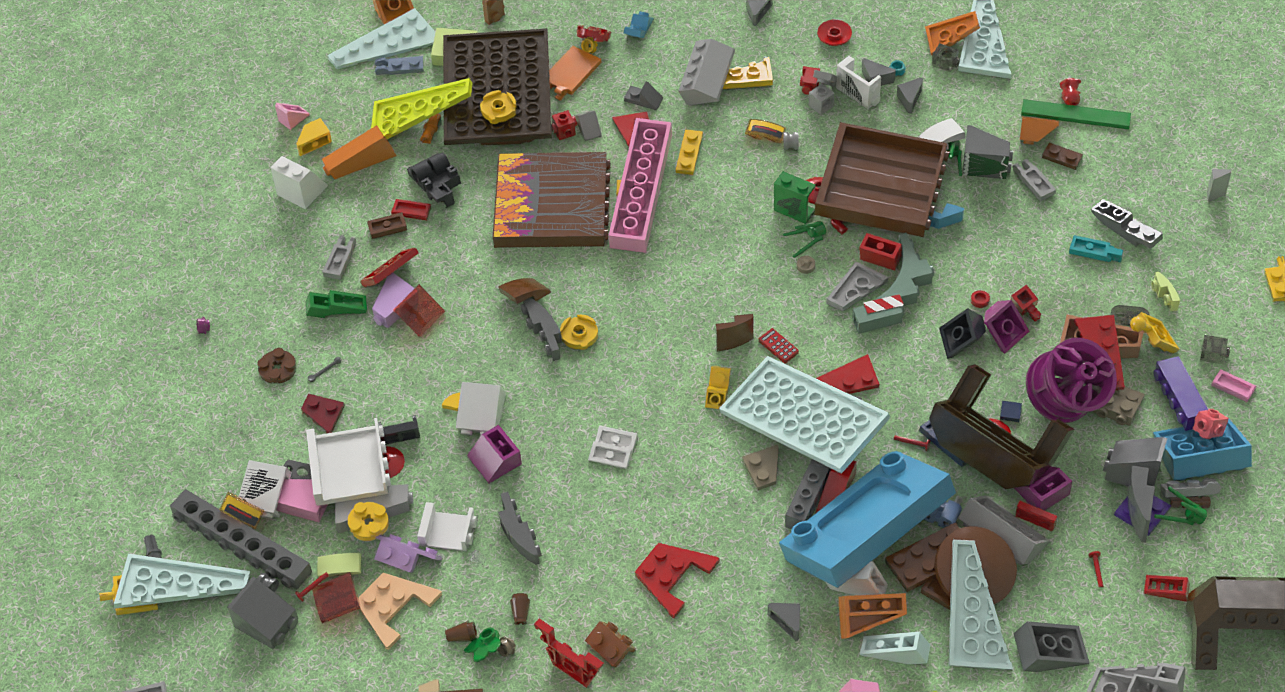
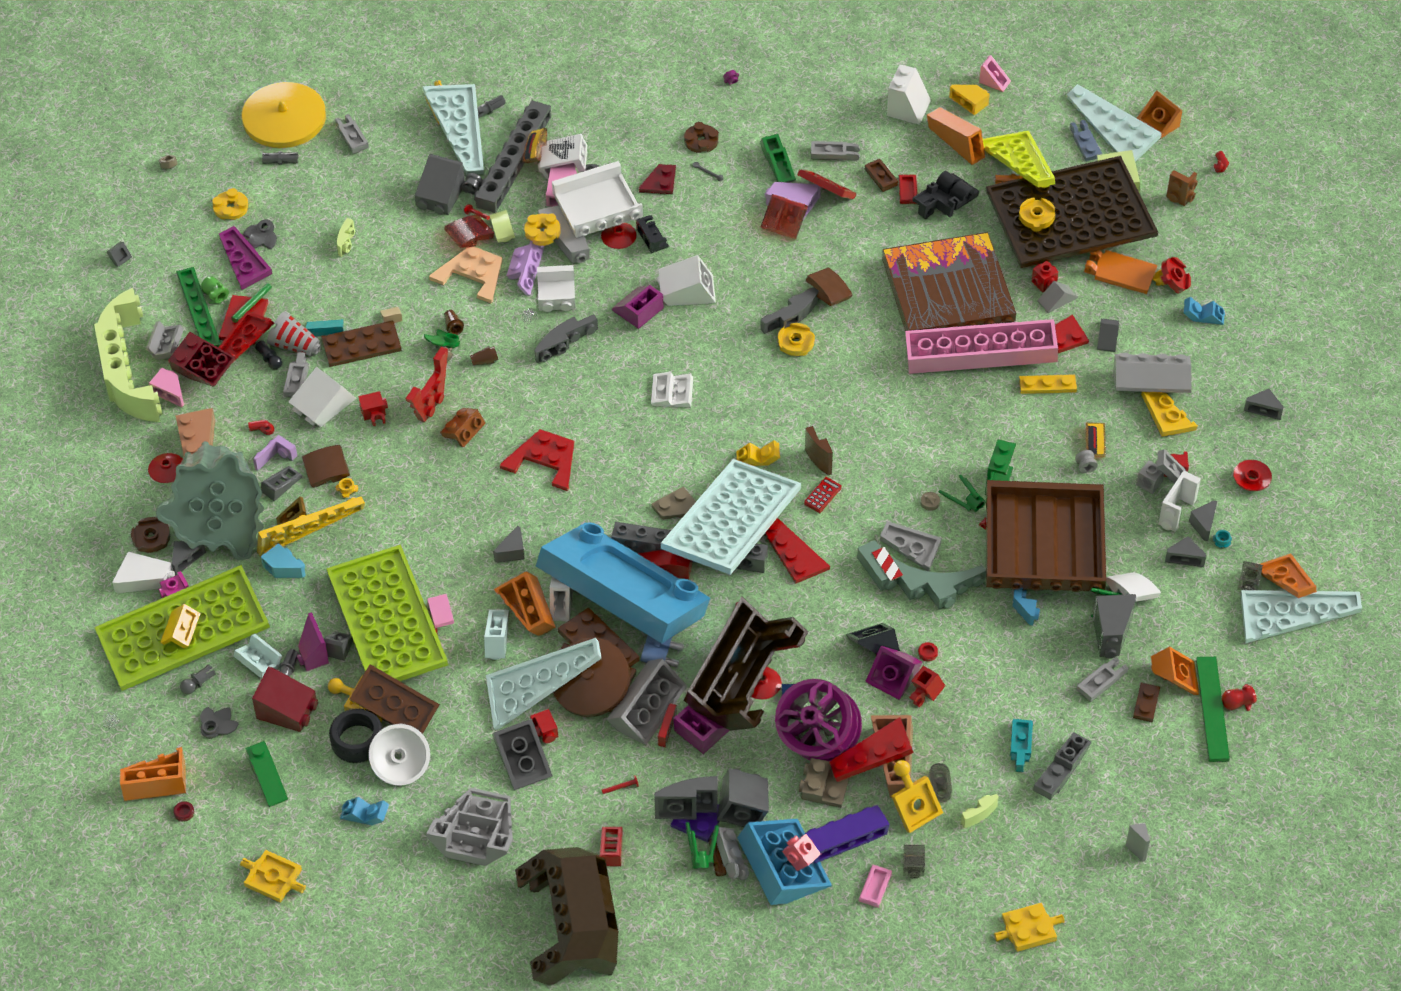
camera: 75 degrees right, 0 degrees up
(880, 251) = (956, 552): red brick -> none
(1017, 617) = (545, 726): none -> red brick

